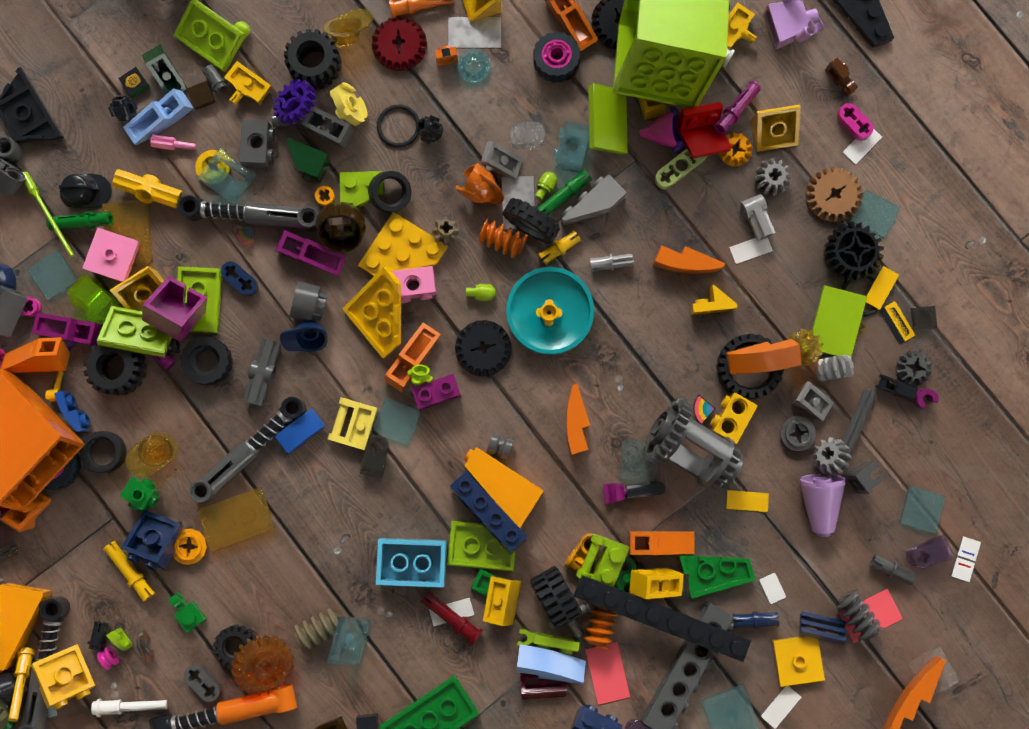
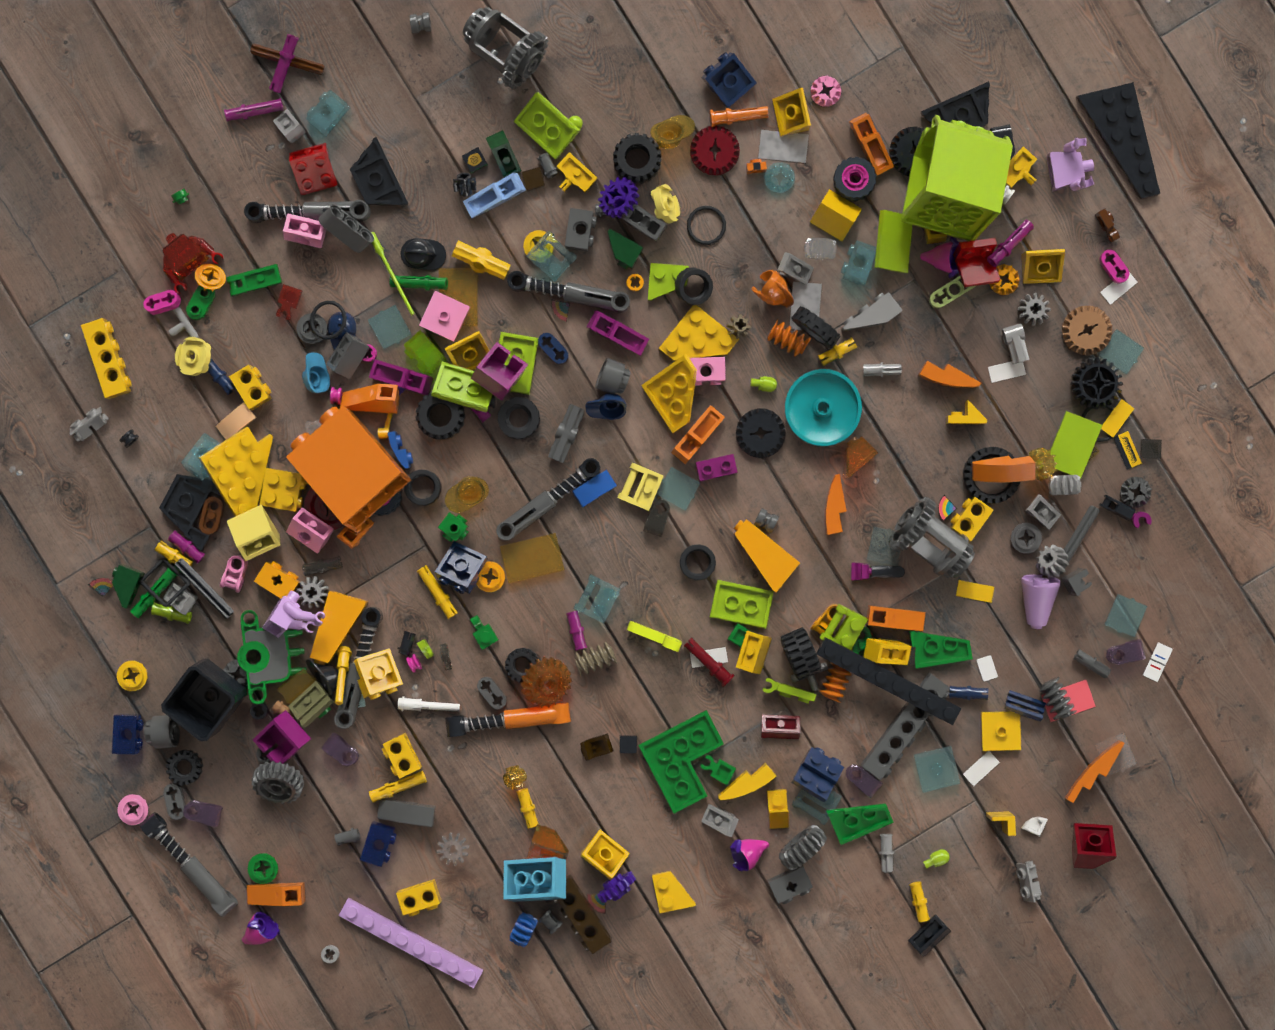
camera: 15 degrees right, 5 degrees up
(169, 143) = (501, 219): bright pink axle -> none
(294, 598) = (576, 630): none -> magenta pin
(321, 562) = (603, 602): none -> clear light blue plate
(342, 235) = (648, 320): dark brown piece -> none
(349, 640) = (621, 670): clear light blue plate -> none
(400, 600) = (666, 640): none -> neon yellow beam
(409, 503) = (700, 576): none -> black tyre
(411, 562) = (680, 611): medium azure brick -> none
(420, 374) = (704, 451): lime plate -> none
(429, 129) = (734, 233): black gear -> none
(488, 513) = (750, 576): dark blue brick -> none
(539, 99) = (835, 215): none -> yellow slope
(545, 184) = (832, 293): lime cylinder -> none
(549, 306) = (827, 409): yellow plate -> none
(550, 664) = (789, 710): light blue slope -> none
(562, 195) = (853, 300): green pin -> none
(594, 360) = (857, 455): none -> clear orange slope
(607, 673) = (836, 723): coral sticker -> none

